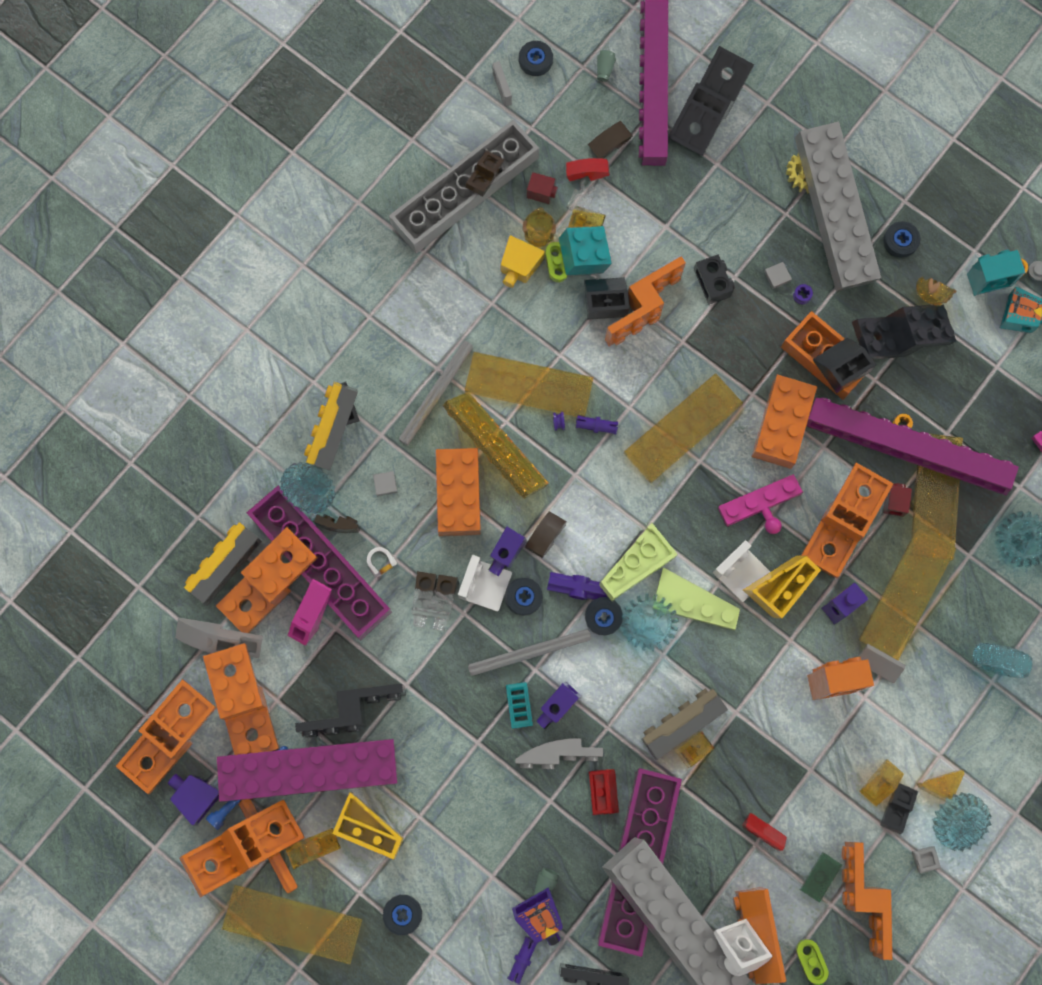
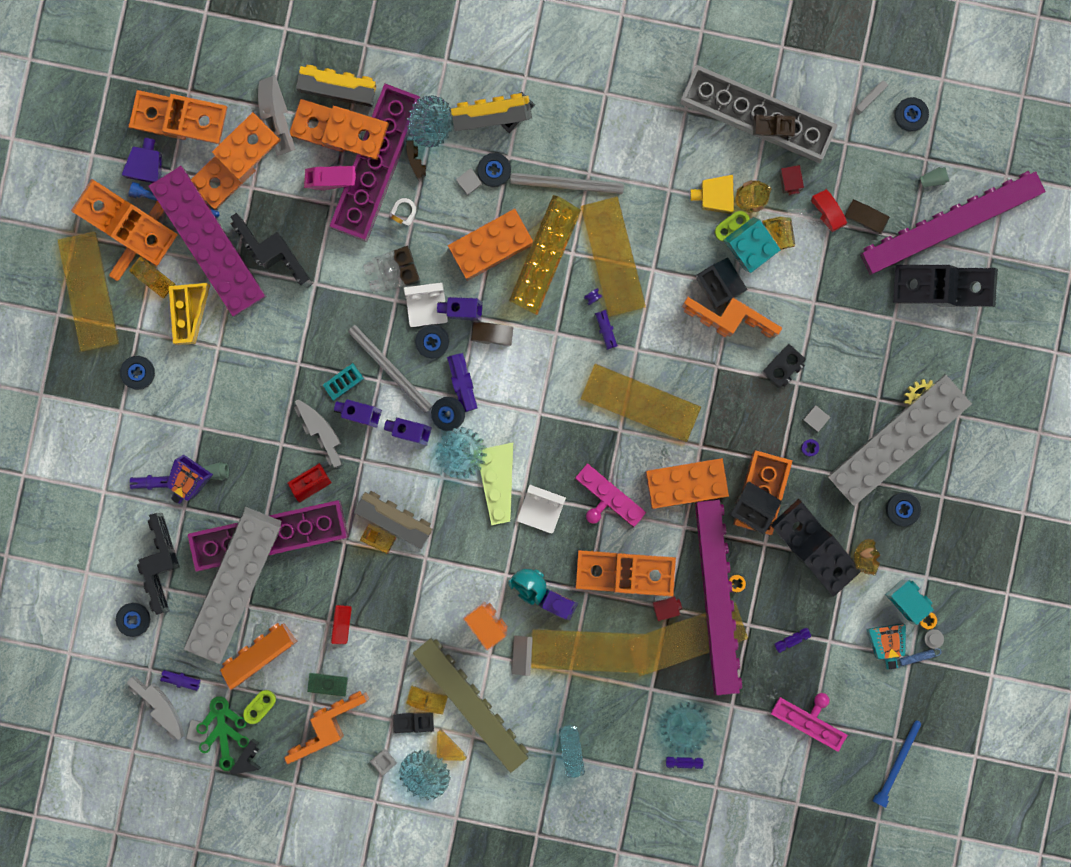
camera: 70 degrees right, 10 degrees up
(382, 444) = (486, 176): none -> black bush
(608, 656) = (414, 431): none -> dark purple torso
(639, 562) = (510, 422): yellowish green wing -> none
(742, 948) = (239, 644): white slope -> none
(783, 586) = (545, 546): yellow wedge -> none
(814, 620) = (529, 585): none -> teal cylinder
(909, 739) = (470, 704): none -> olive brick
(981, 398) = (792, 640): none -> dark purple axle

